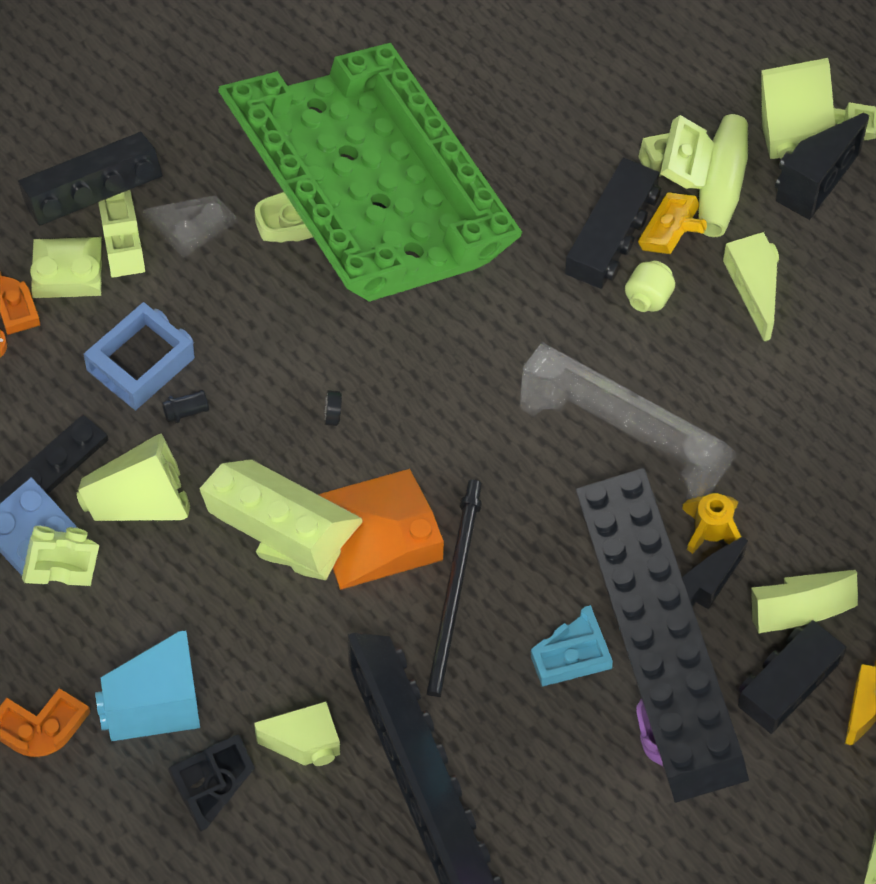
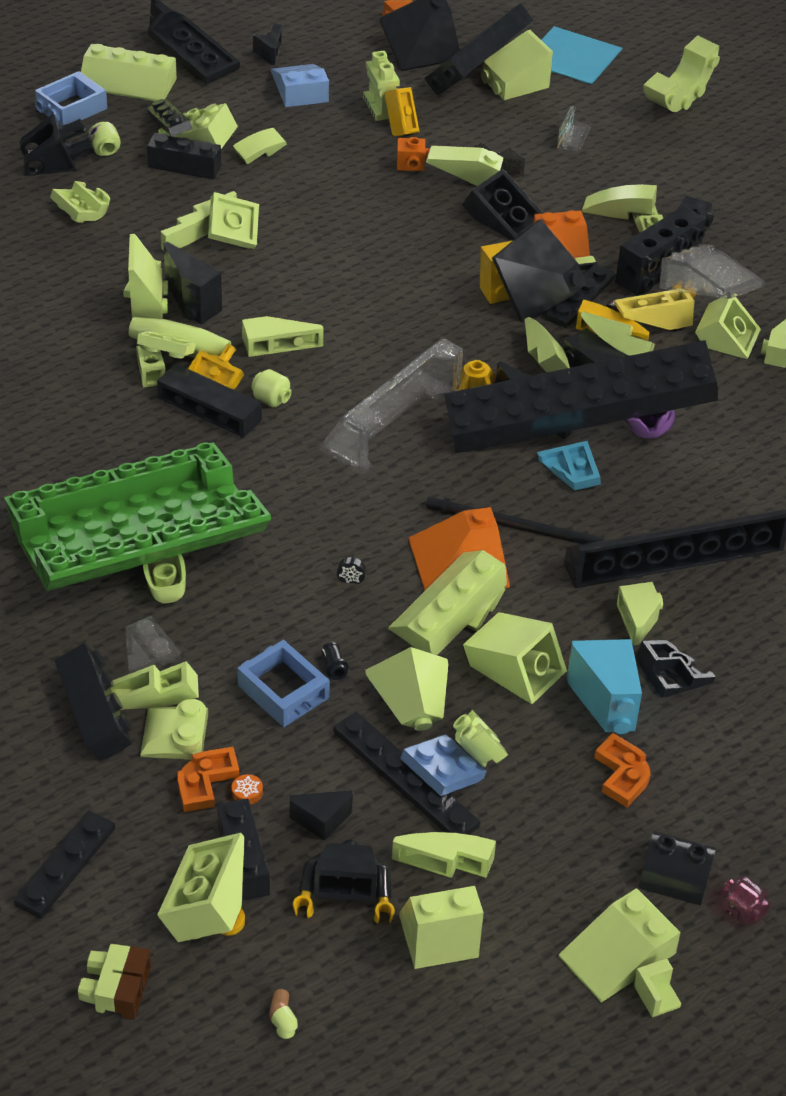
camera: 85 degrees left, 15 degrees down
(203, 592) = (517, 654): none -> yellowish green slope
(834, 688) = (617, 334): none -> yellowish green slope

